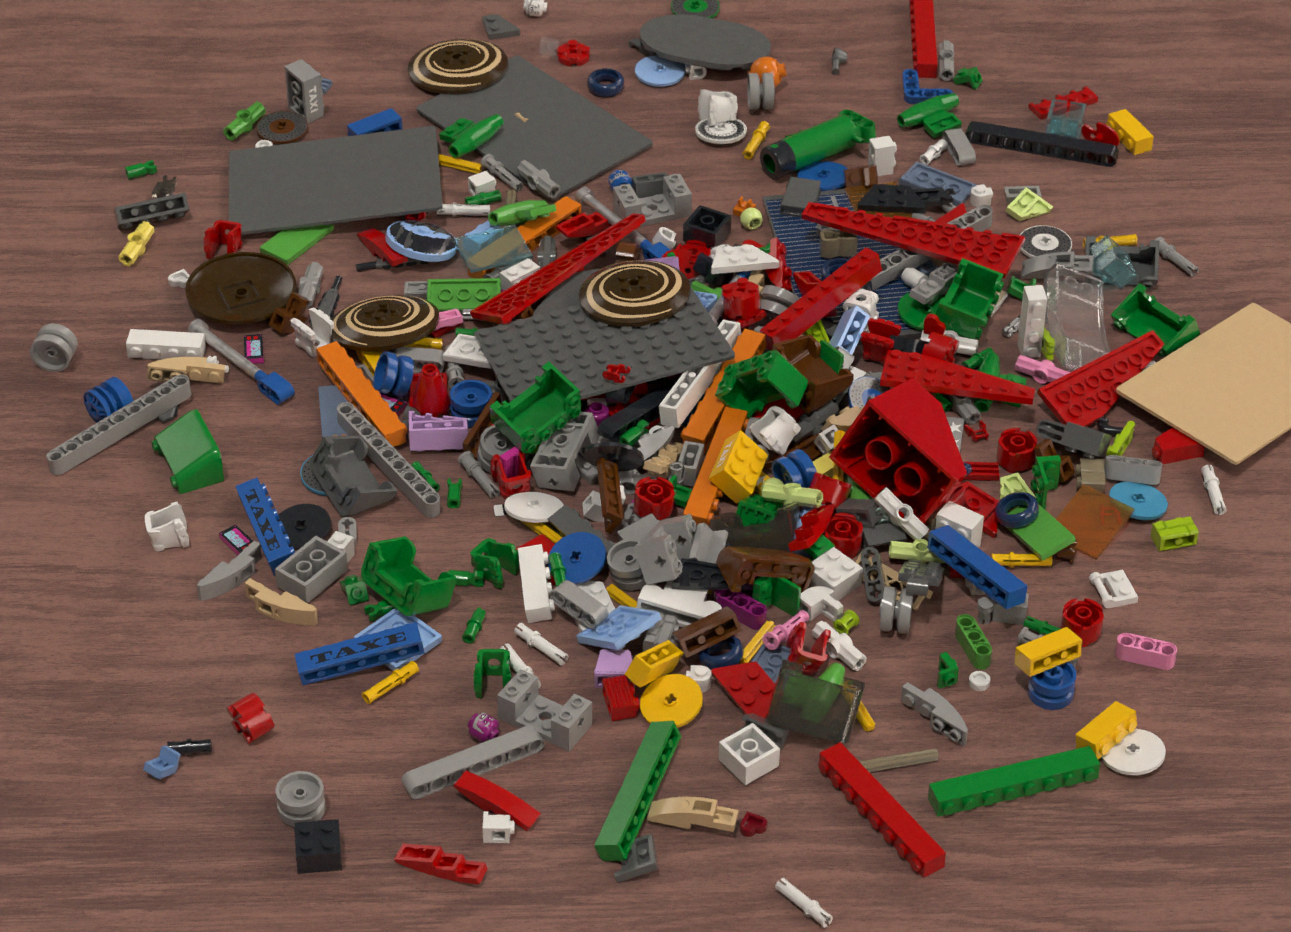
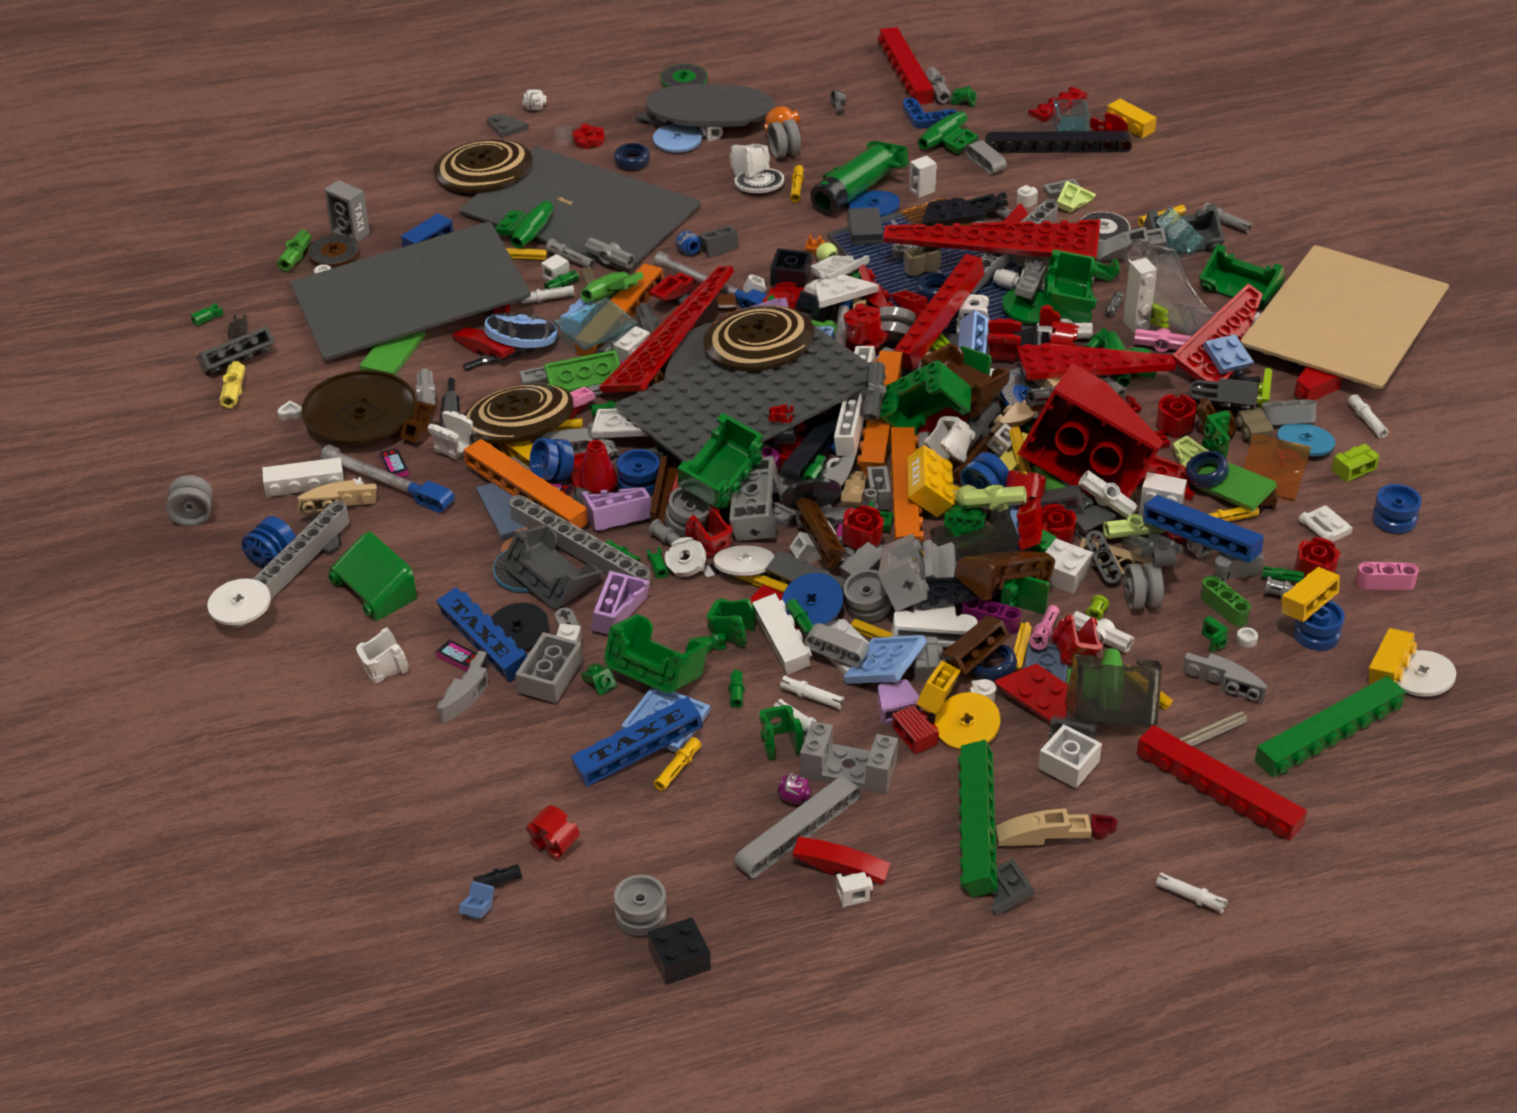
camera: 15 degrees left, 0 degrees up
(60, 451) = (239, 601): none -> white piece
(216, 235) = (313, 362): red piece -> none
(283, 608) = (534, 712): tan slope -> none
(380, 609) = (635, 692): green bar -> none
(400, 518) = (618, 600): none -> lavender wedge
(443, 865) = (805, 939): red slope -> none
(486, 500) = (688, 567): none -> white plate
(510, 462) = (706, 519): dark pink tile -> none
(671, 205) = (746, 252): light grey plate -> none
(714, 367) = (873, 391): none -> dark grey piece
(753, 234) = (837, 265): none -> white wing
(821, 601) = (1064, 592): white brick -> none
(861, 176) = (912, 197): reddish brown brick -> none
(924, 176) = (972, 189): sand blue tile -> none
(933, 152) = (964, 166): white pin -> none
(1098, 398) = (1228, 354): none -> medium blue plate
(1189, 587) = (1396, 508): none -> blue wheel

